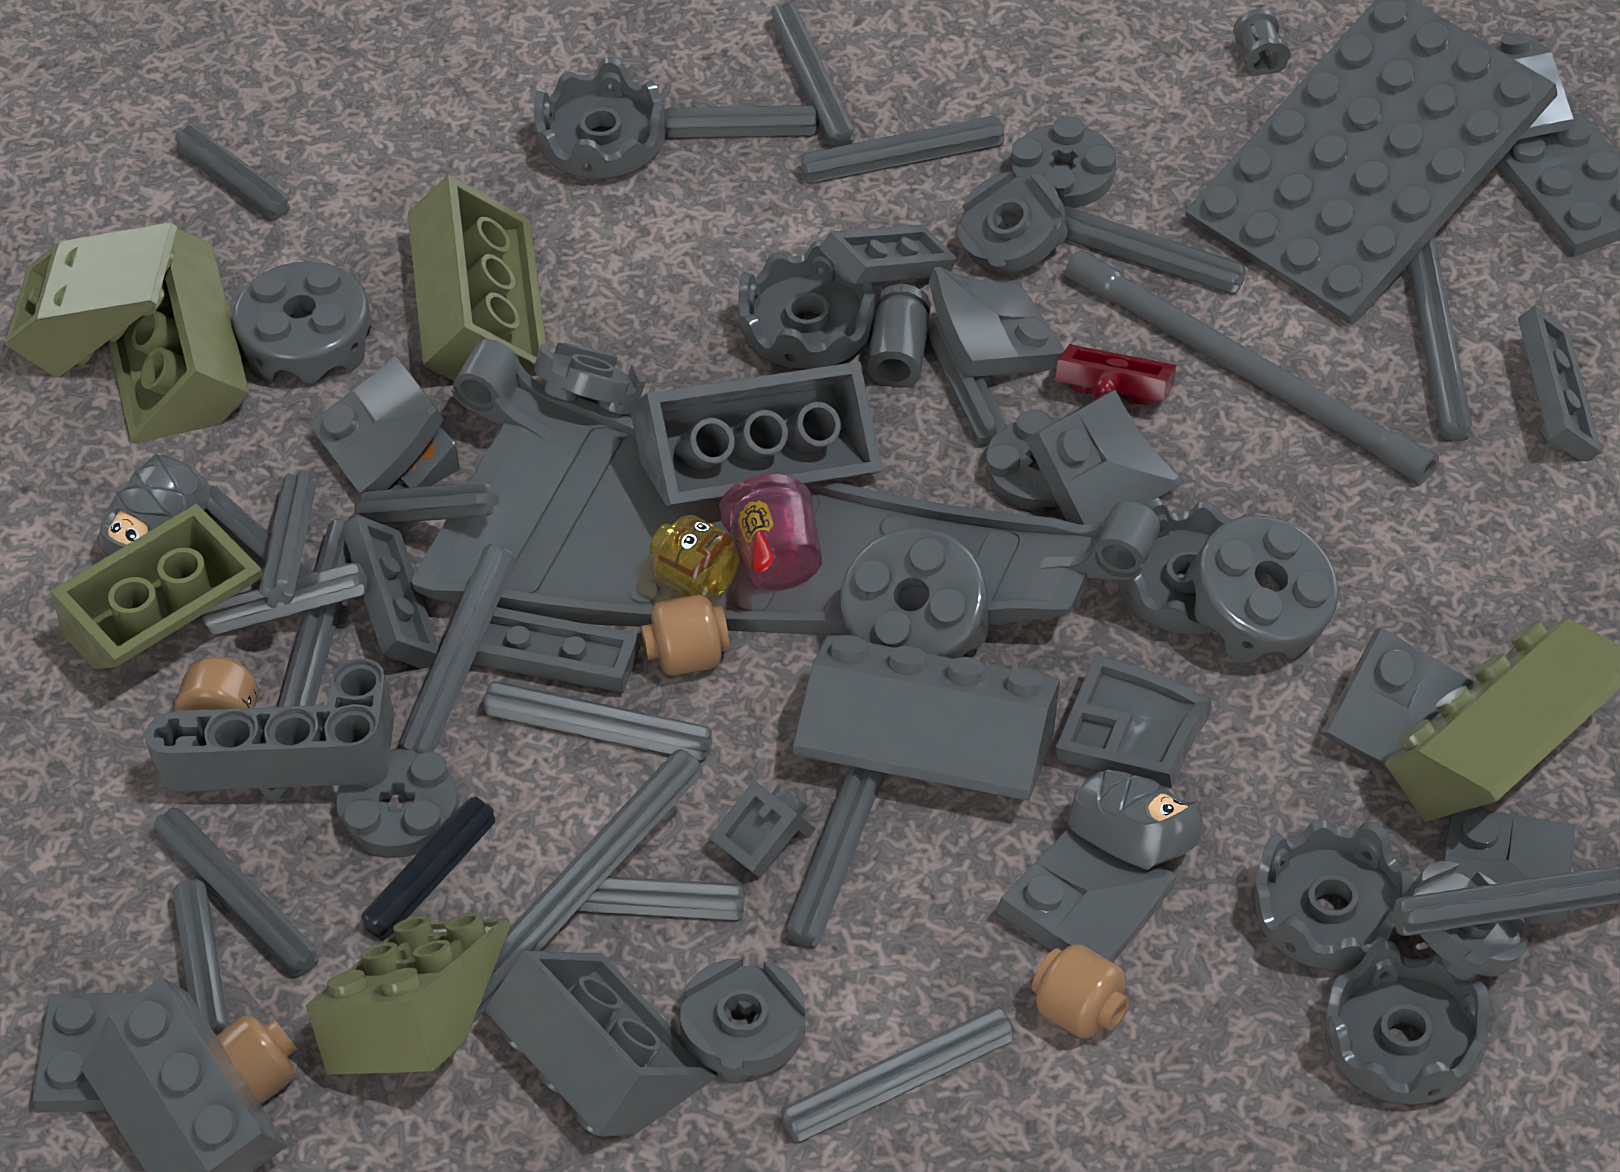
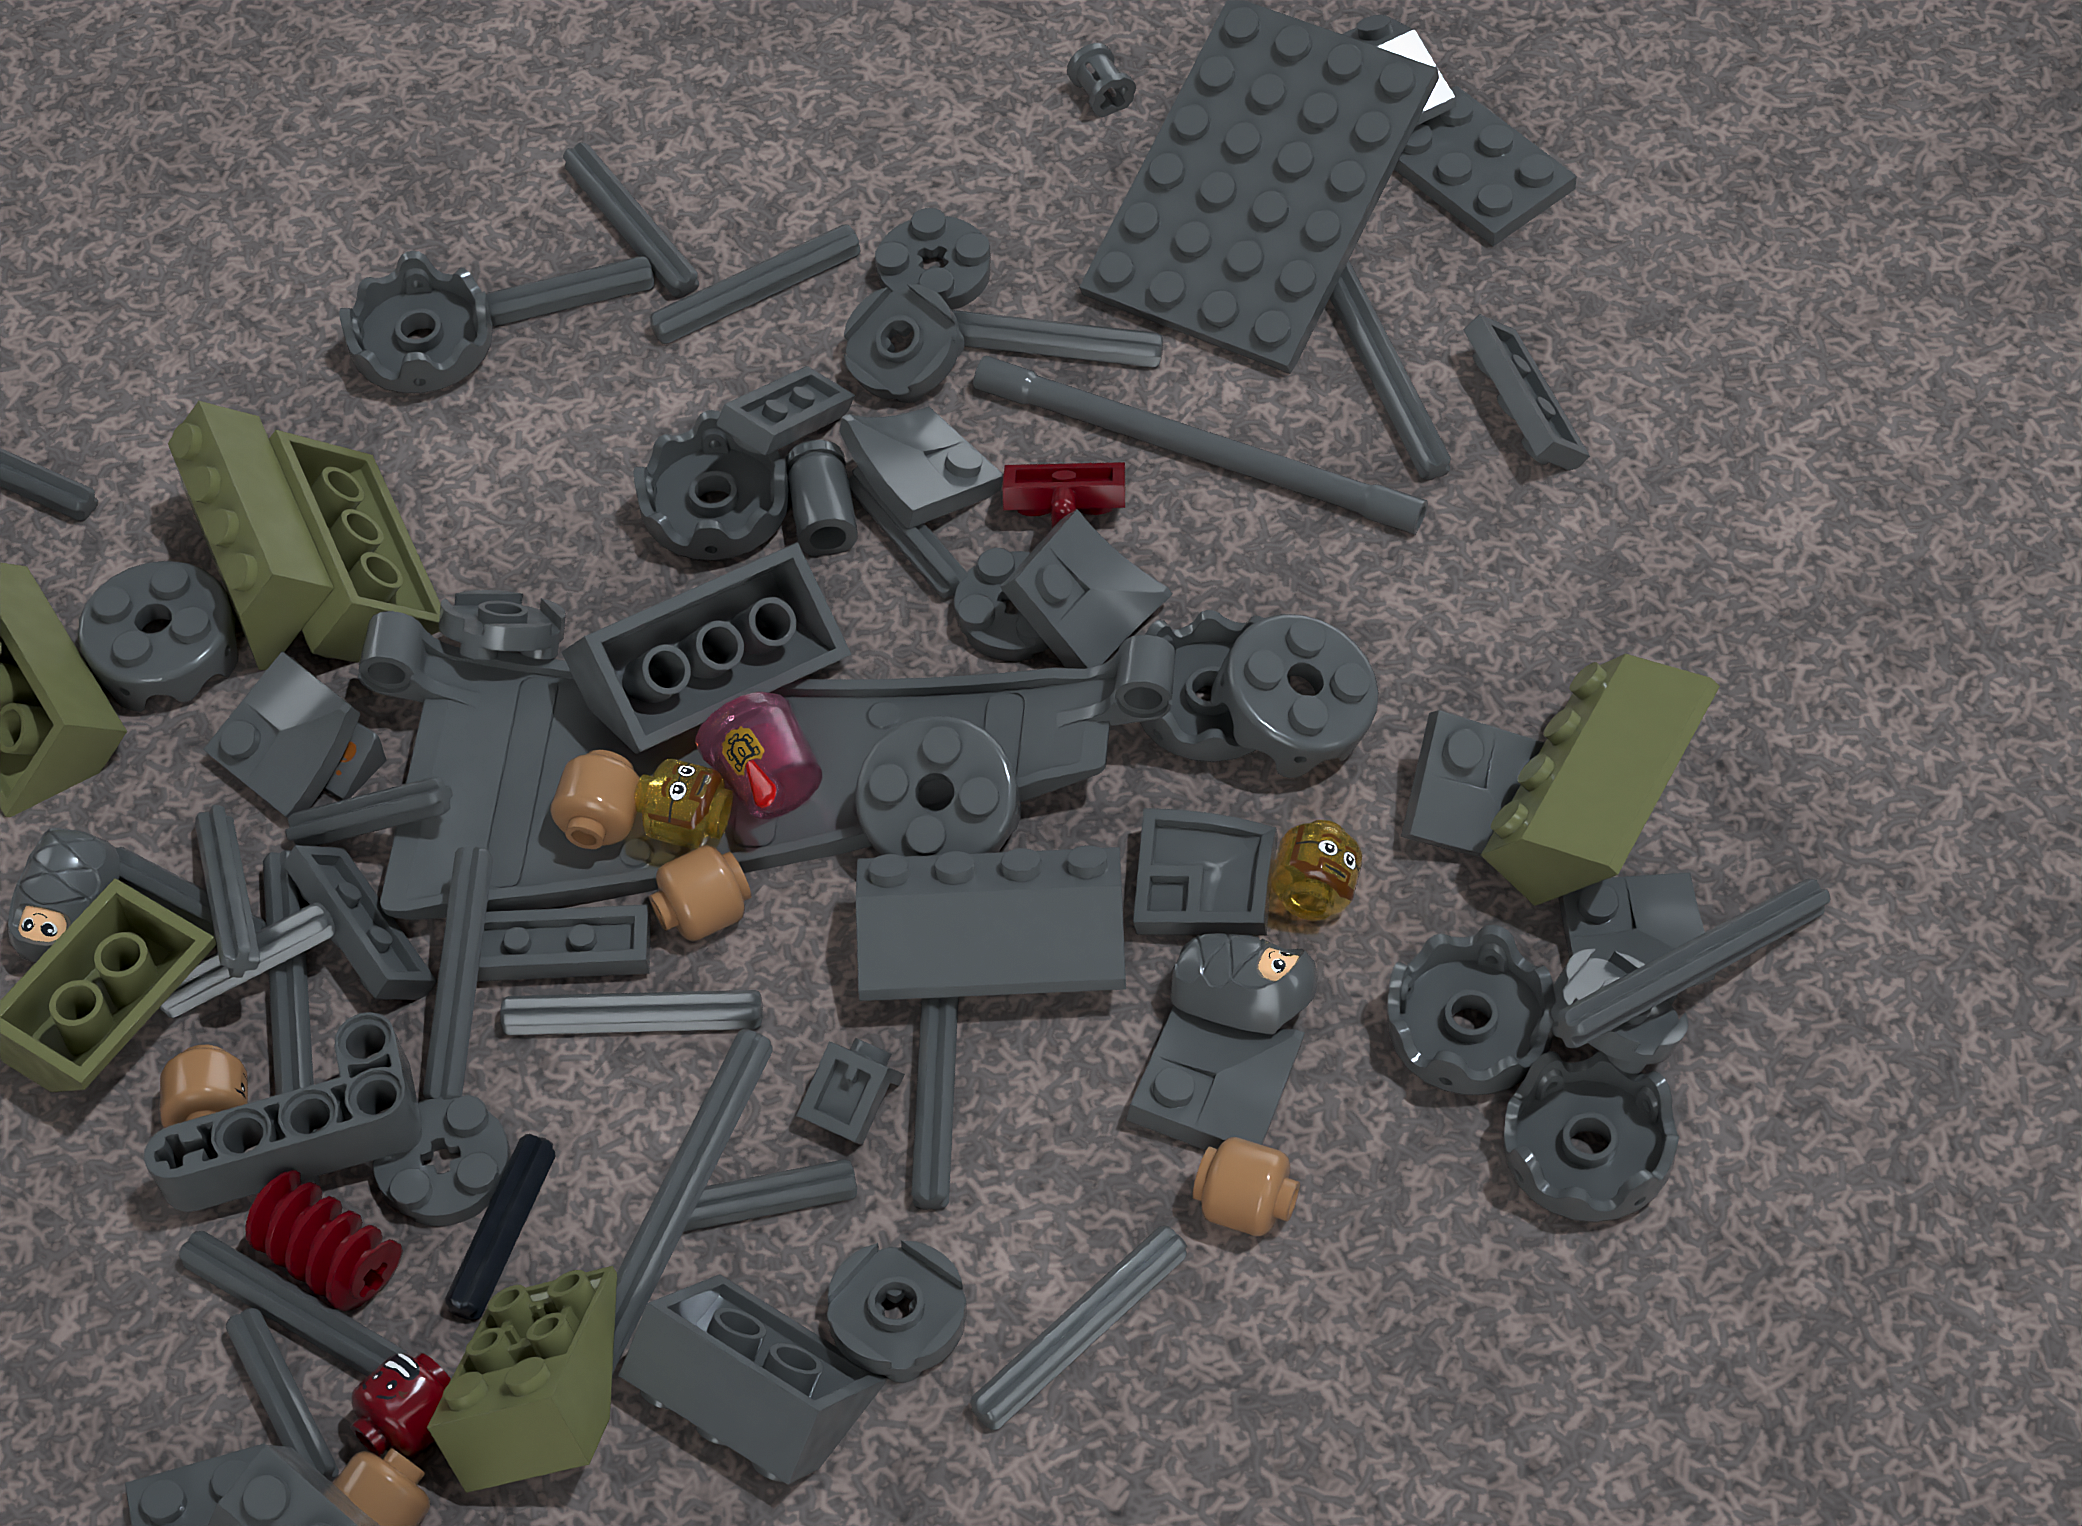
camera: 15 degrees left, 5 degrees up
(273, 840) = (321, 1242): none -> dark red piece
(288, 984) = (398, 1404): none -> dark red head
(402, 247) = (250, 526): none -> olive slope
(620, 535) = (596, 799): none -> medium nougat head
(1233, 742) = (1316, 870): none -> clear yellow head

